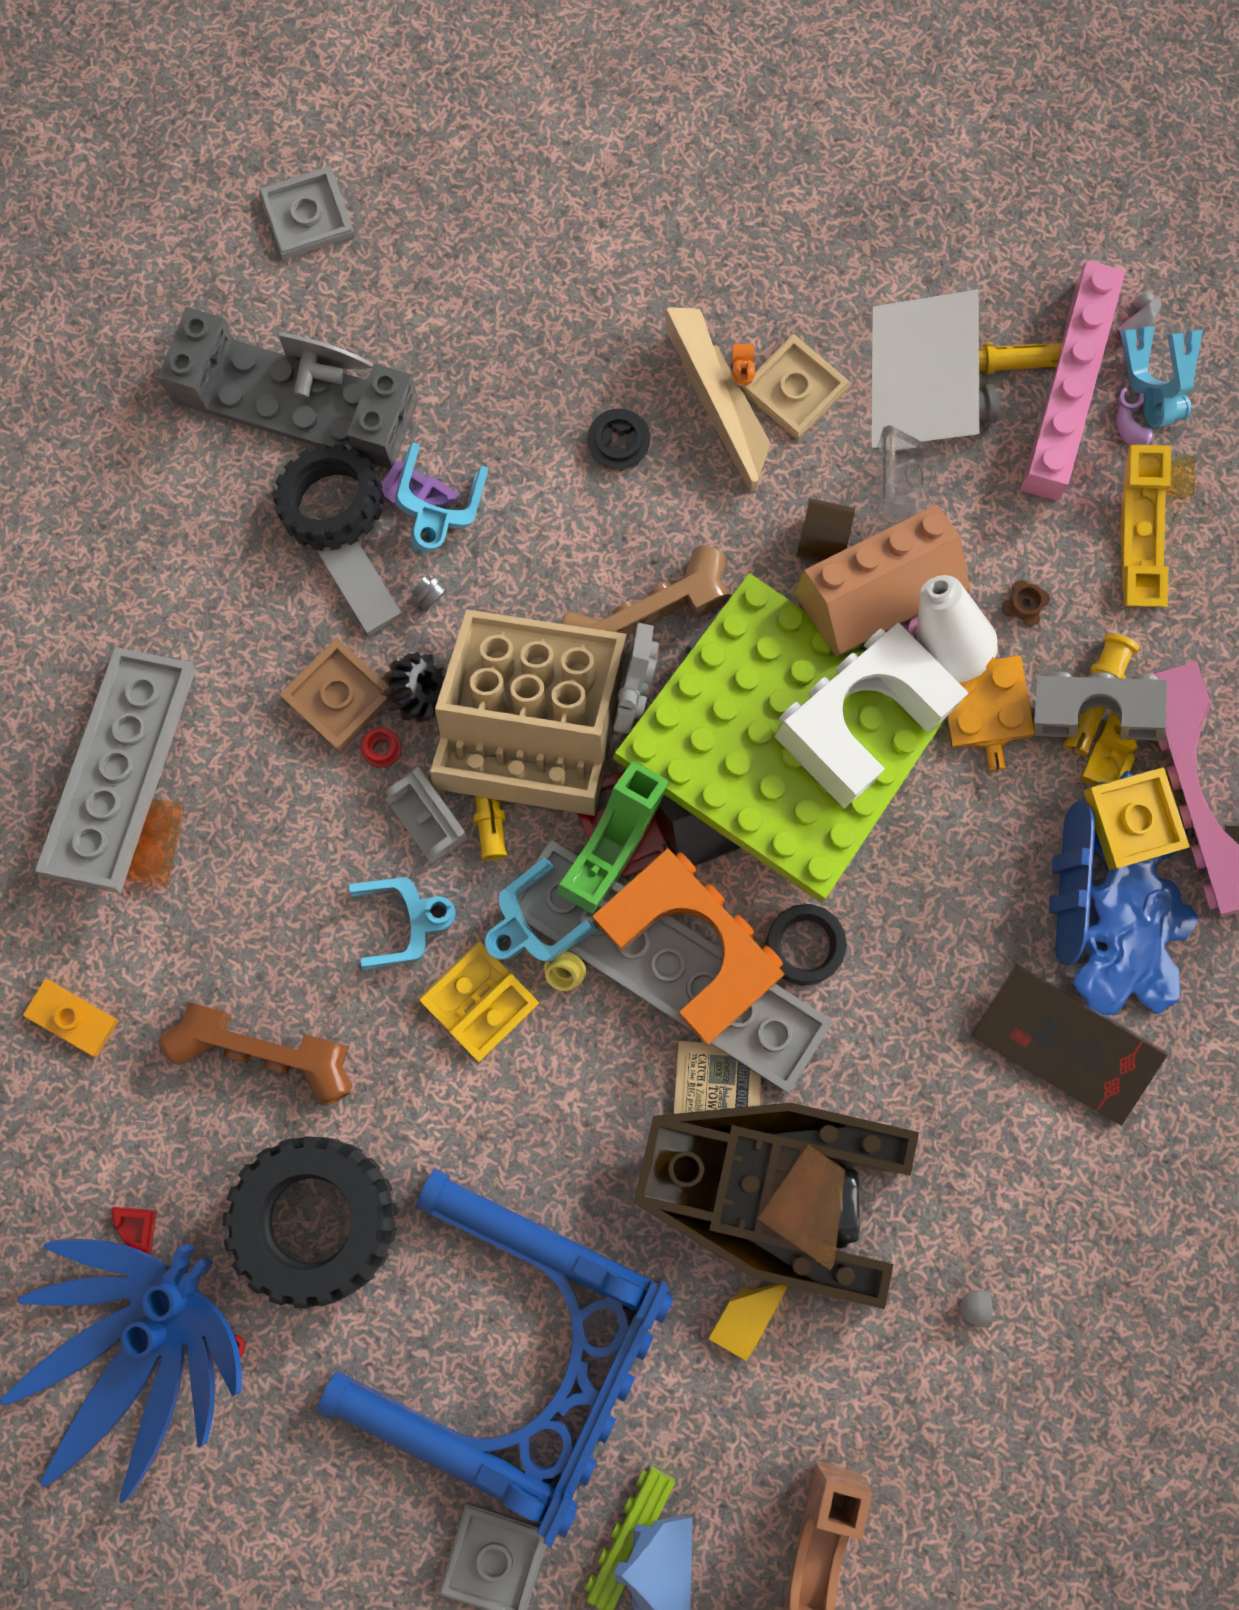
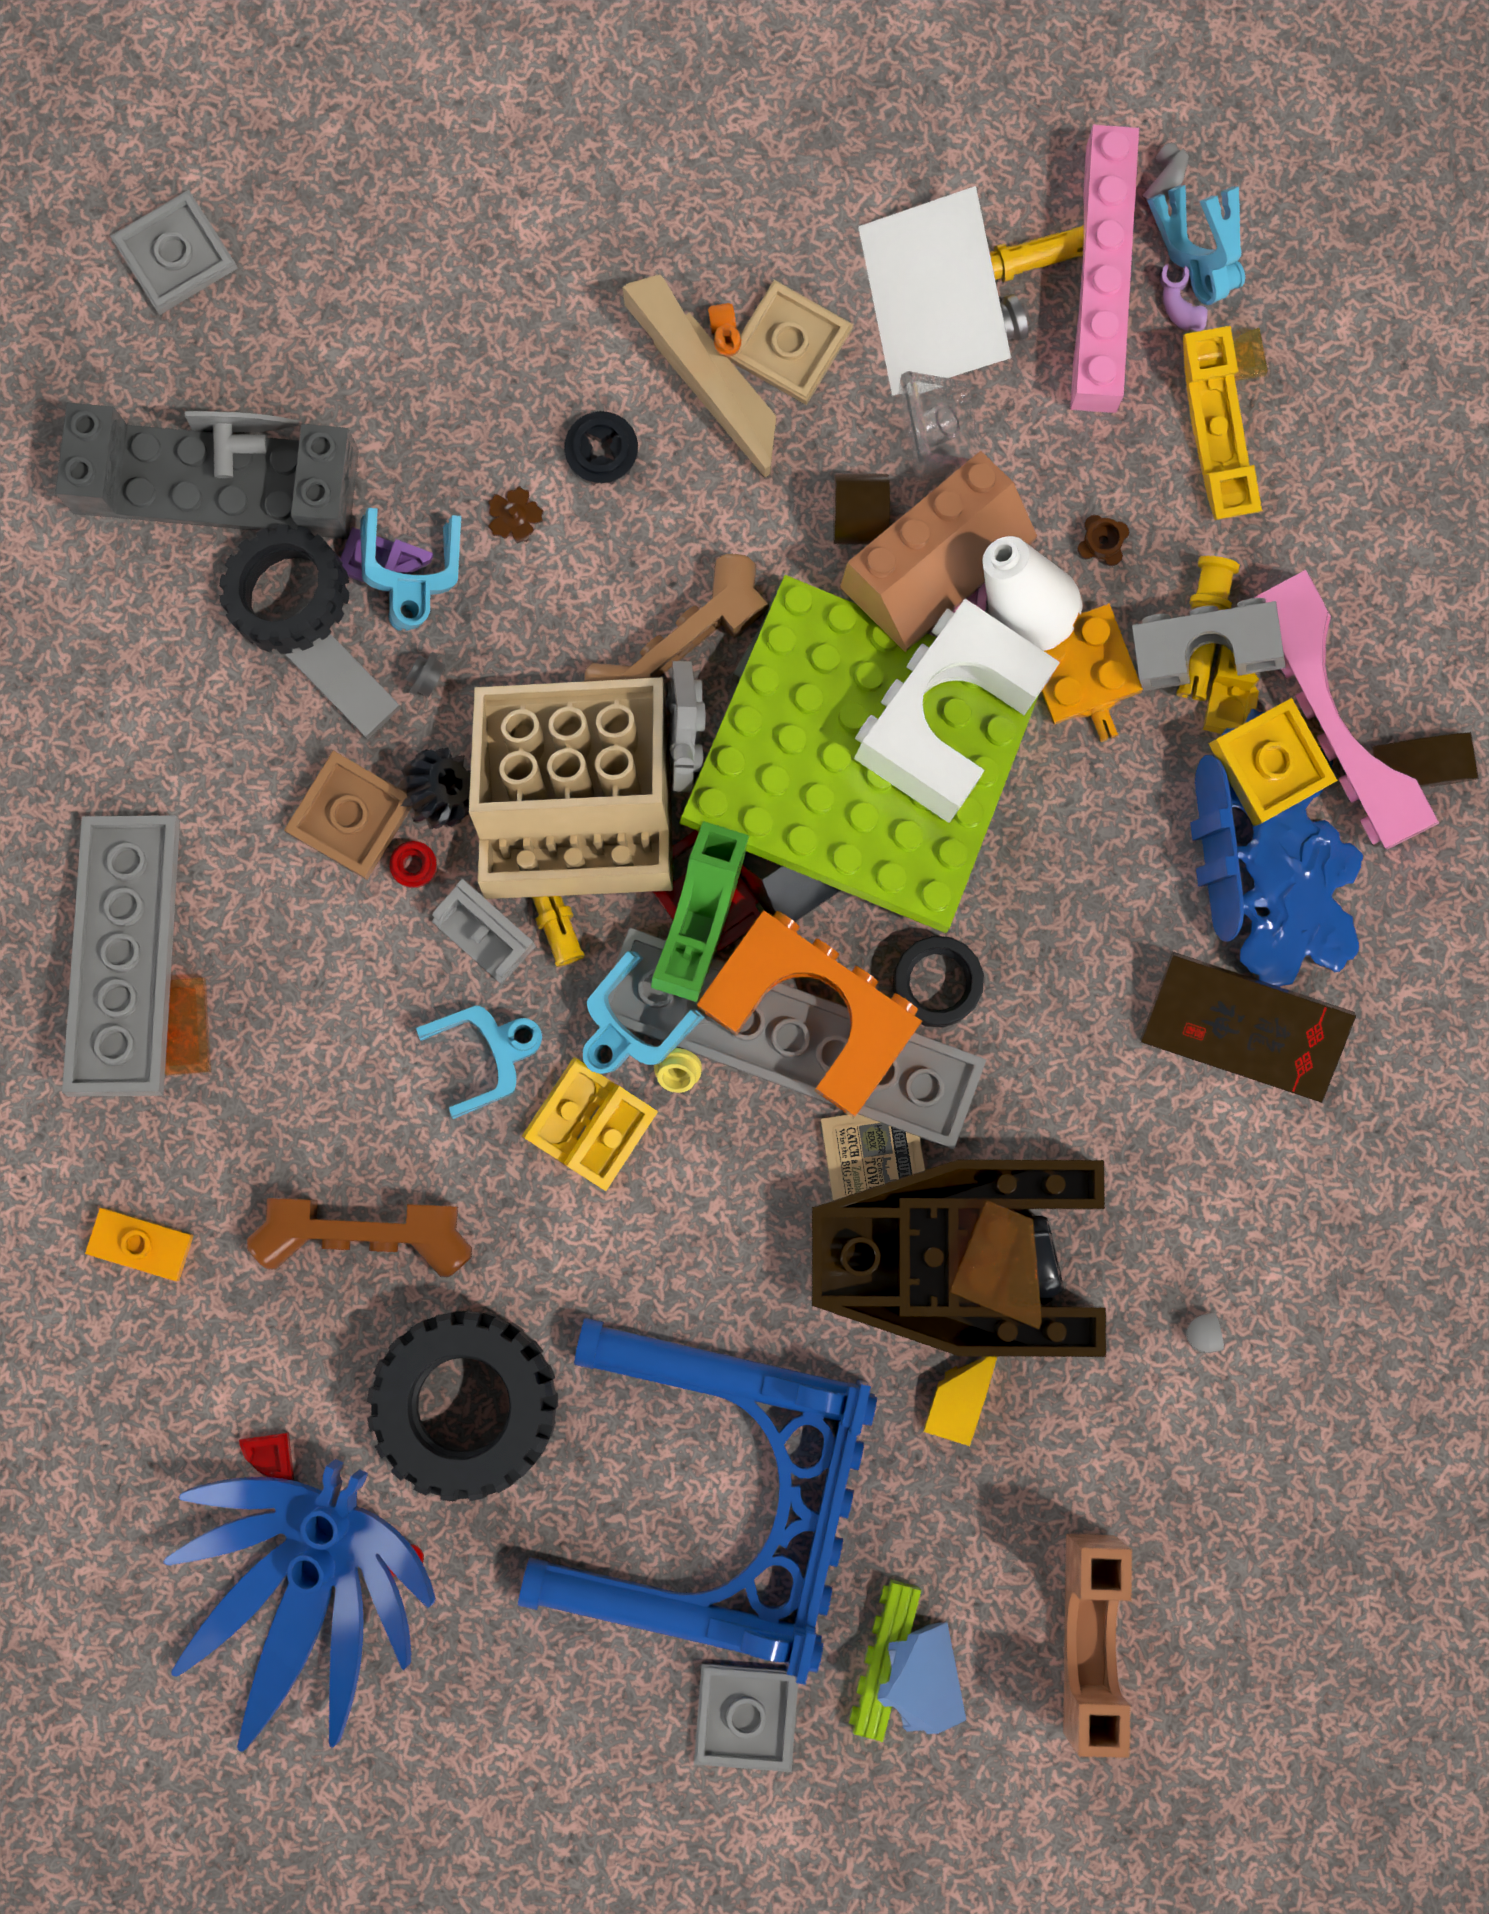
camera: 15 degrees left, 5 degrees up
(534, 479) = (514, 515): none -> reddish brown plant

